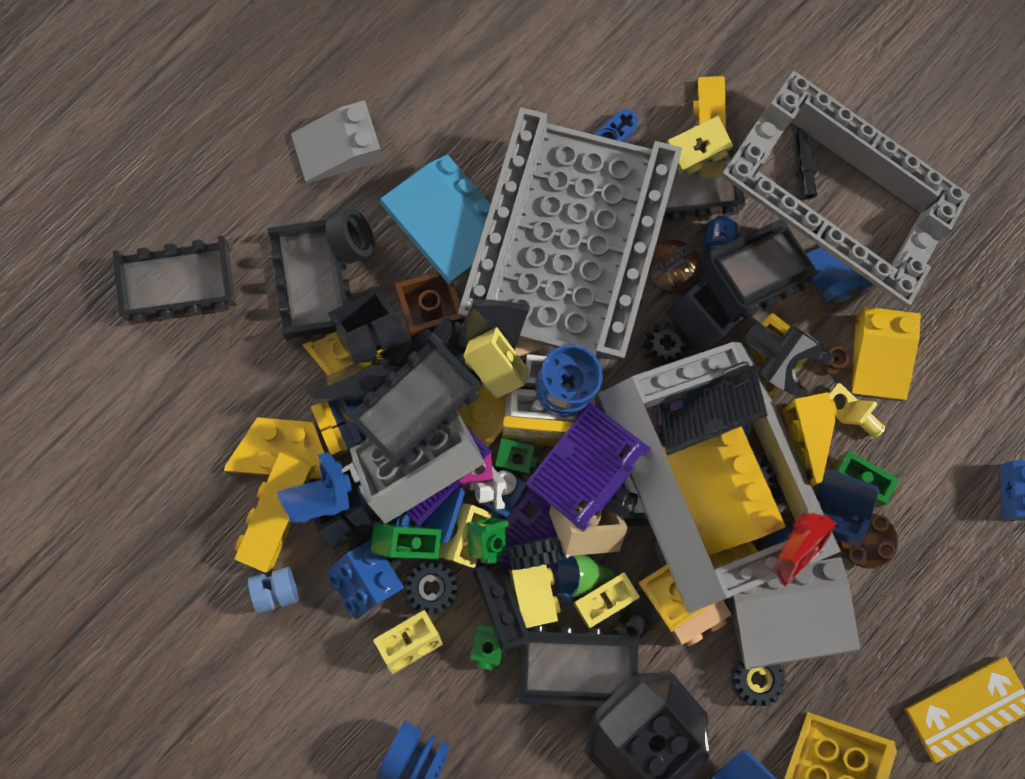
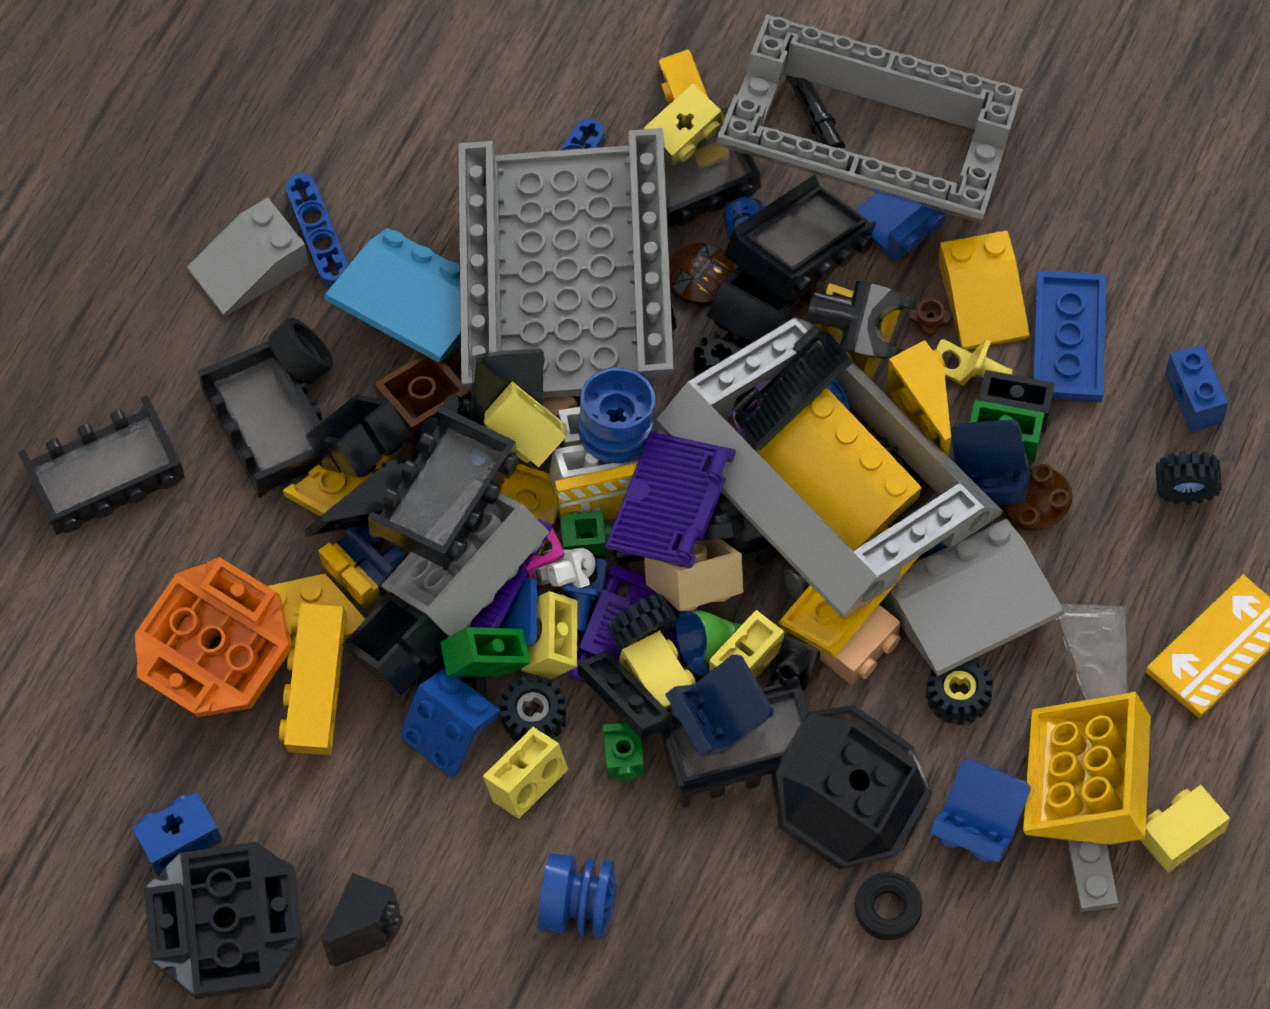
camera: 10 degrees left, 15 degrees down
(112, 694) = (216, 884): none -> black piece
(118, 604) = (195, 826): none -> blue brick
(178, 456) = (187, 617): none -> orange piece
(246, 724) = (361, 921): none -> black slope
(272, 590) = (342, 768): medium blue wheel -> none
(318, 497) = (379, 618): blue bracket -> none
(396, 136) = (320, 230): none -> blue beam
(487, 539) = (580, 624): green brick -> none
(570, 649) = (721, 707): none -> dark blue bracket
(803, 546) = (945, 493): red slope -> none
(874, 683) = (1097, 647): none -> clear wing
(882, 453) = (1018, 392): none -> black brick
(937, 412) = (1070, 334): none -> blue plate
(992, 567) = (1188, 477): none -> black bush

